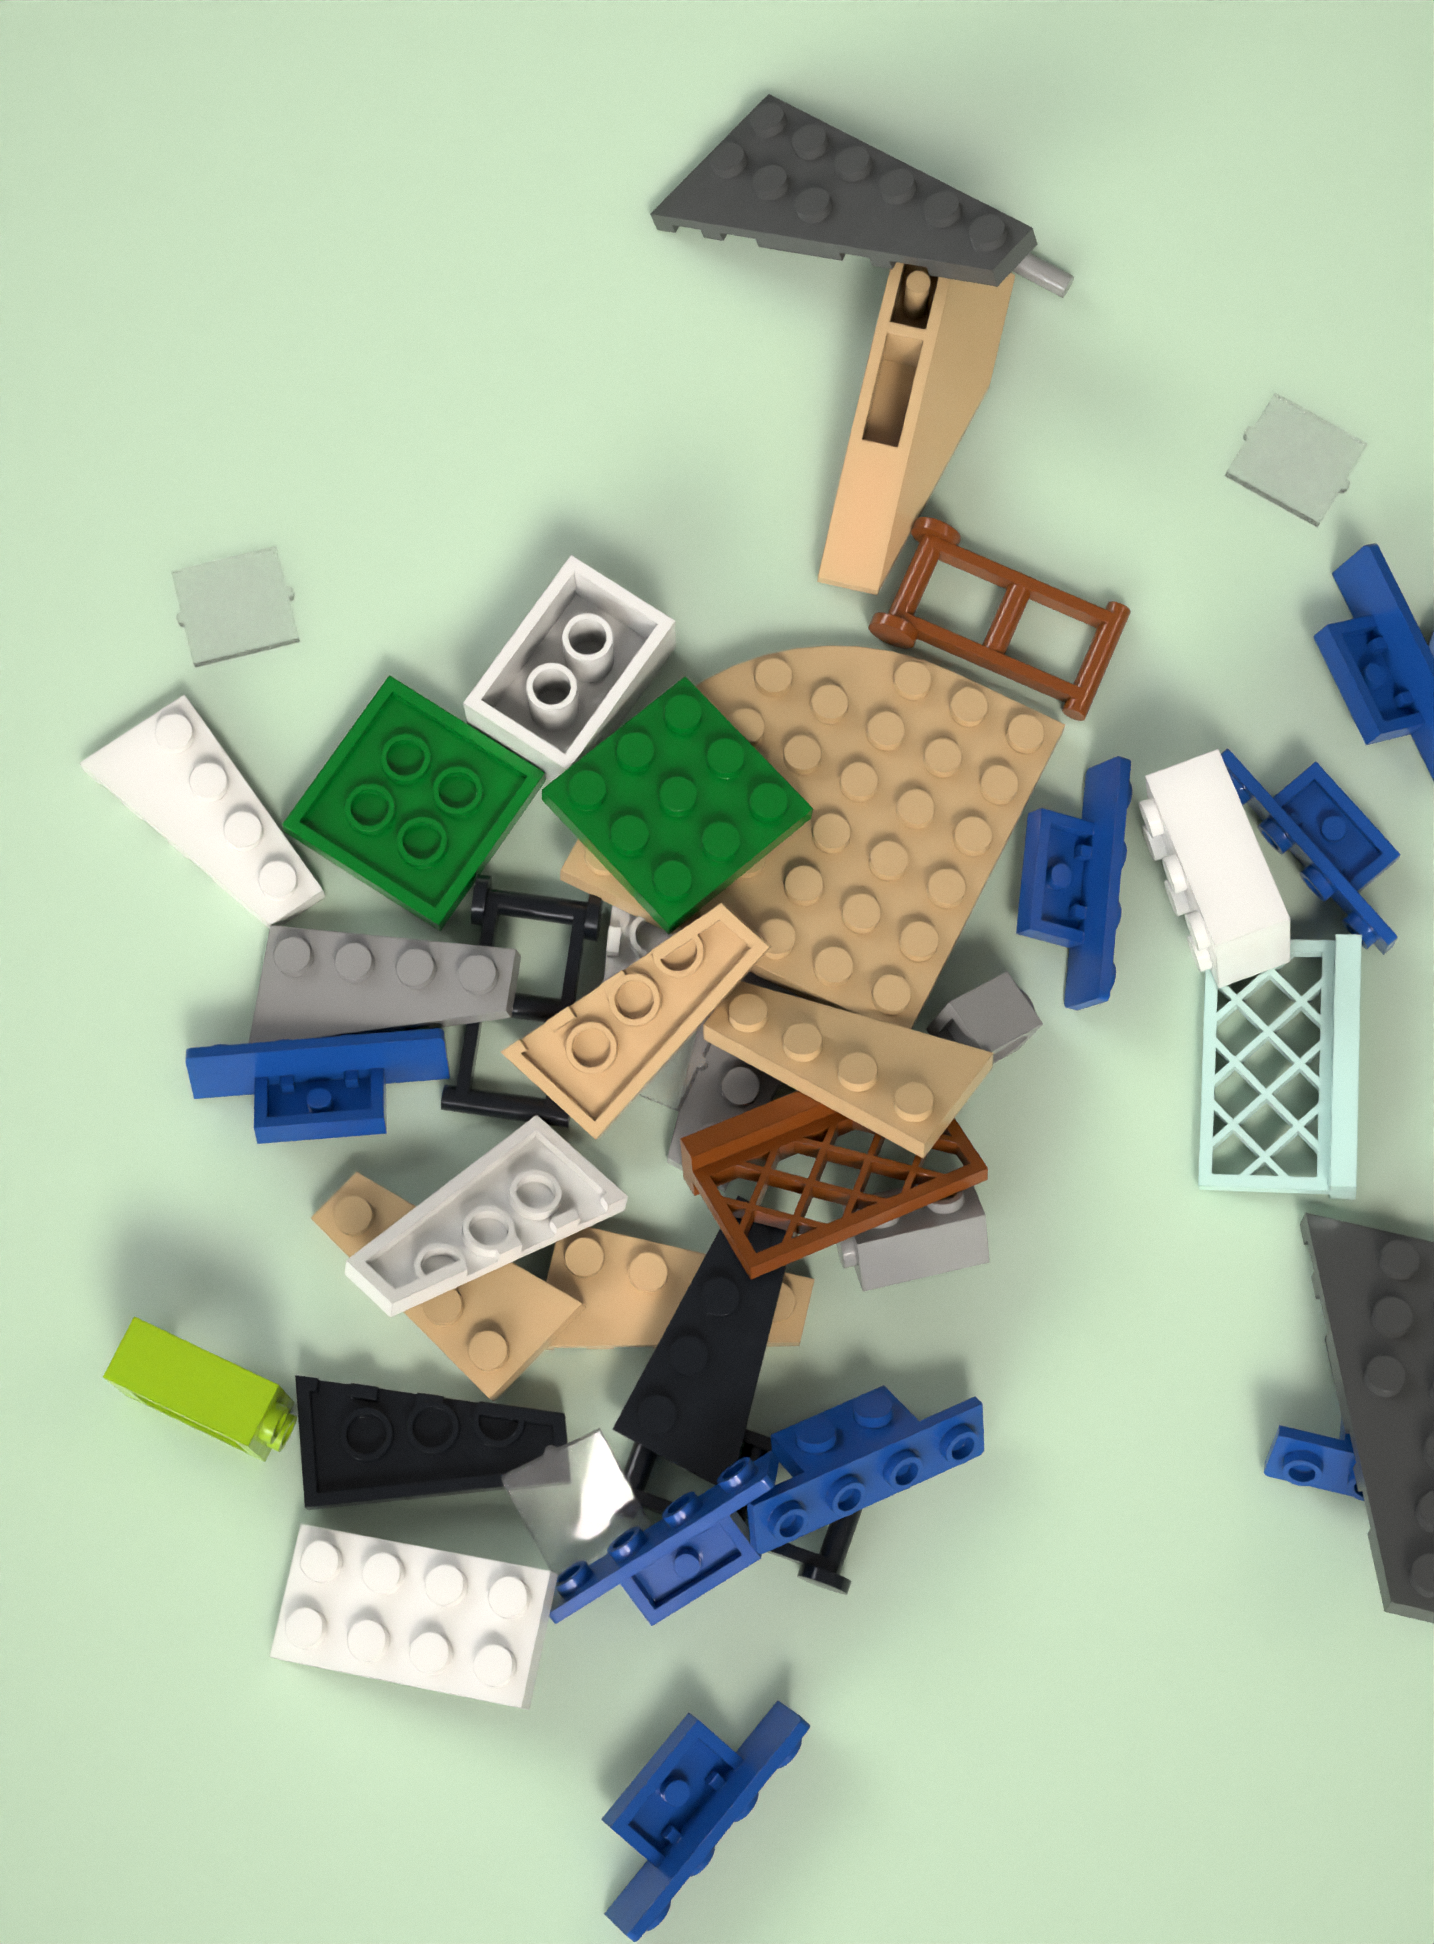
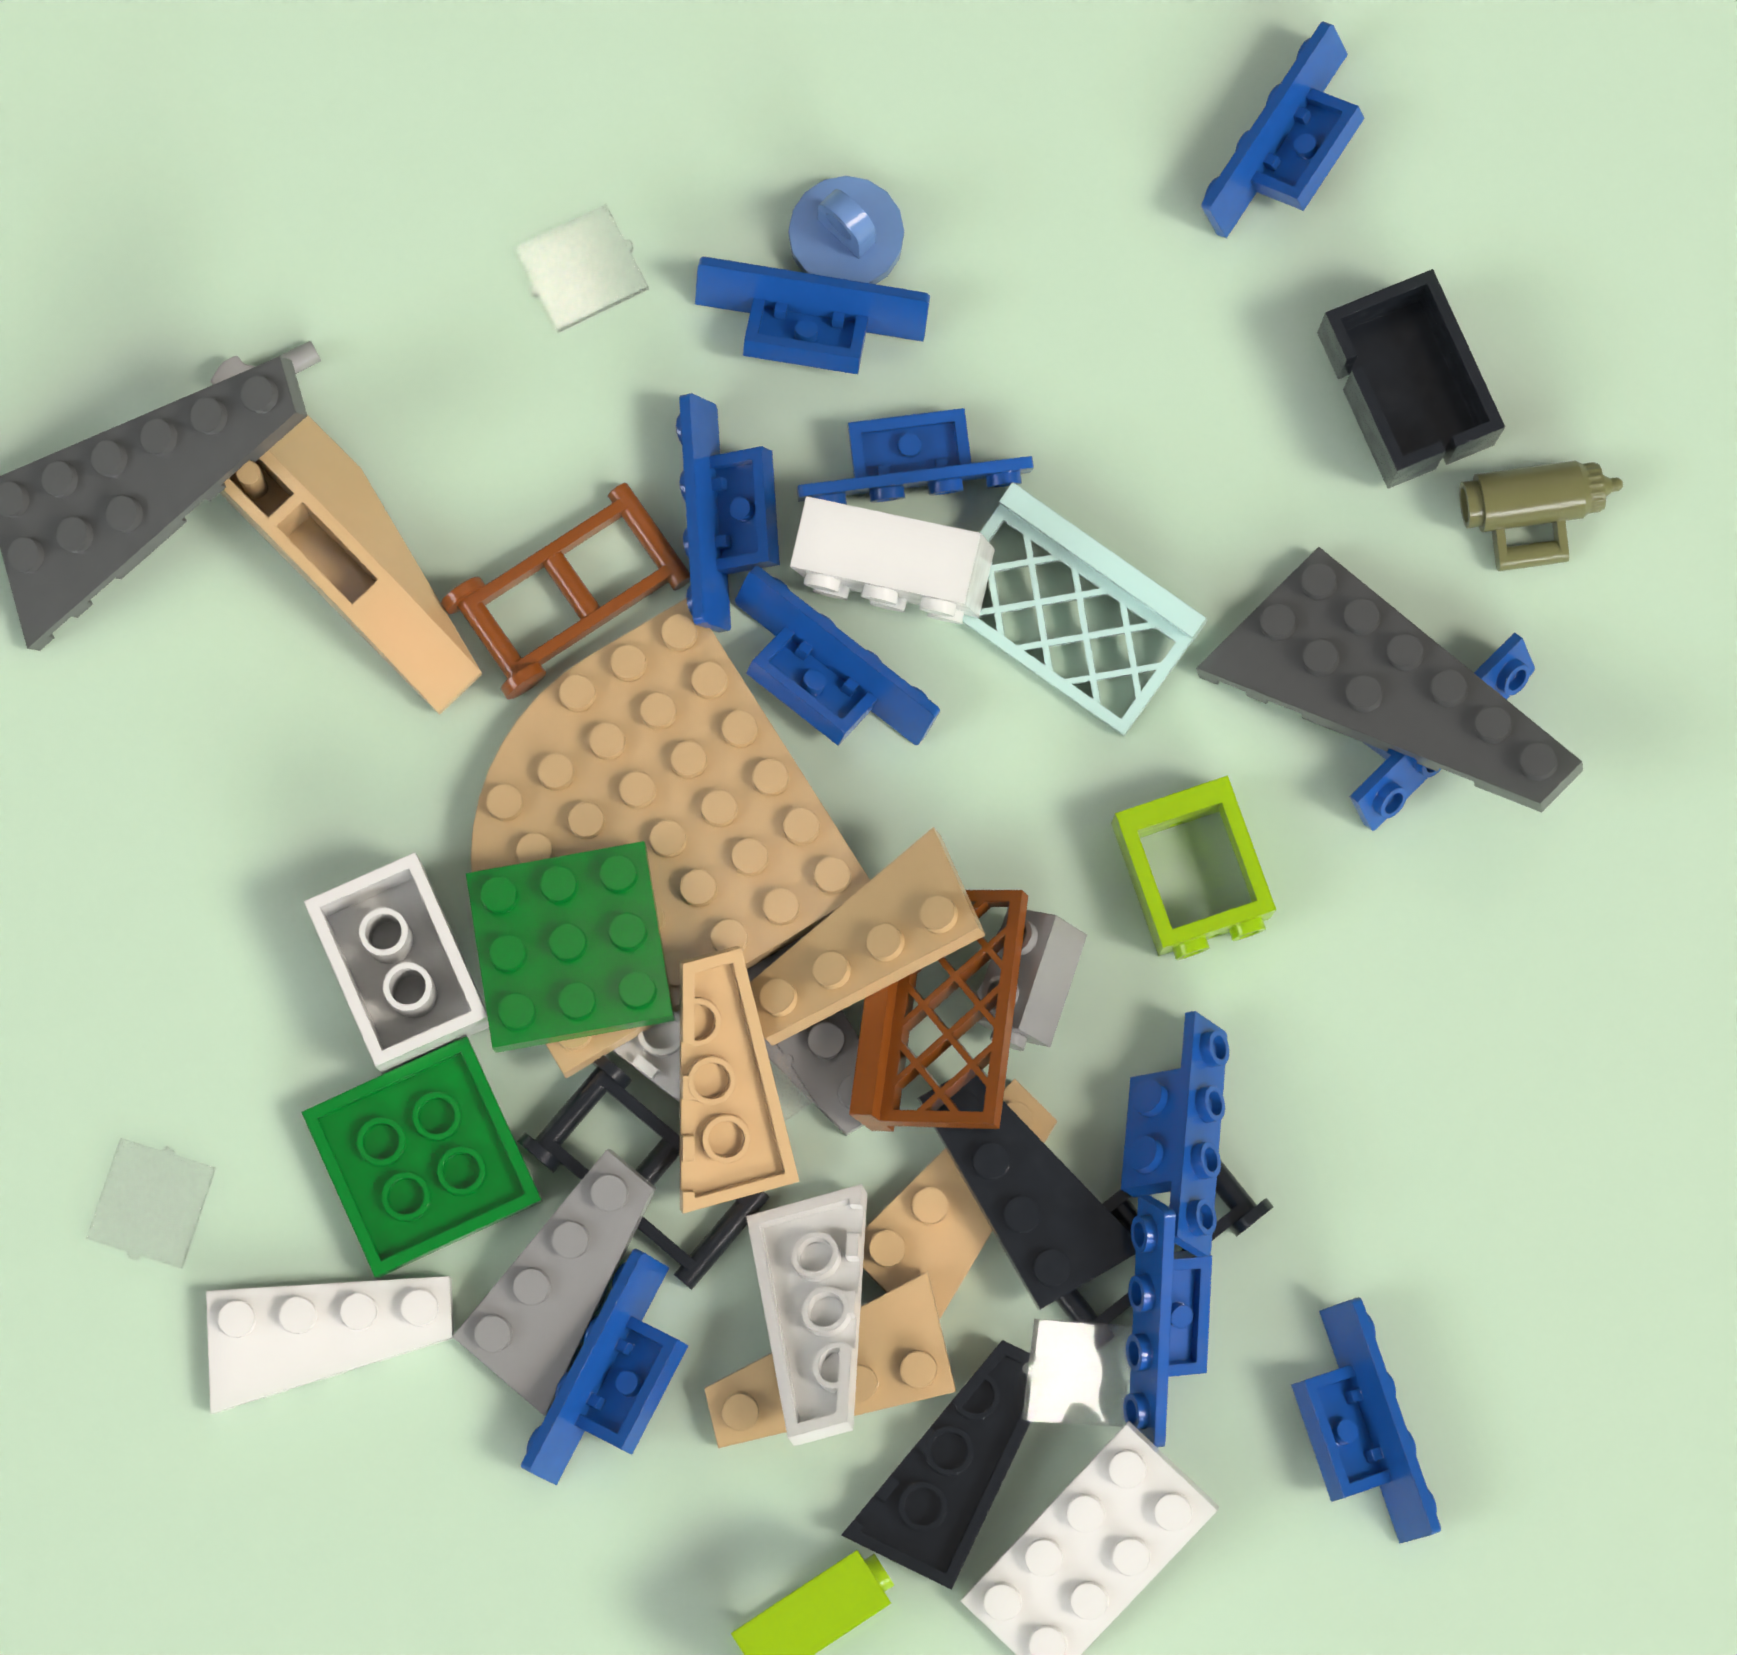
camera: 60 degrees left, 5 degrees up
(989, 1018) = (896, 813): light grey brick -> none
(1157, 1273) = (1173, 811): none -> lime window
(1161, 706) = (726, 511): none -> blue bracket

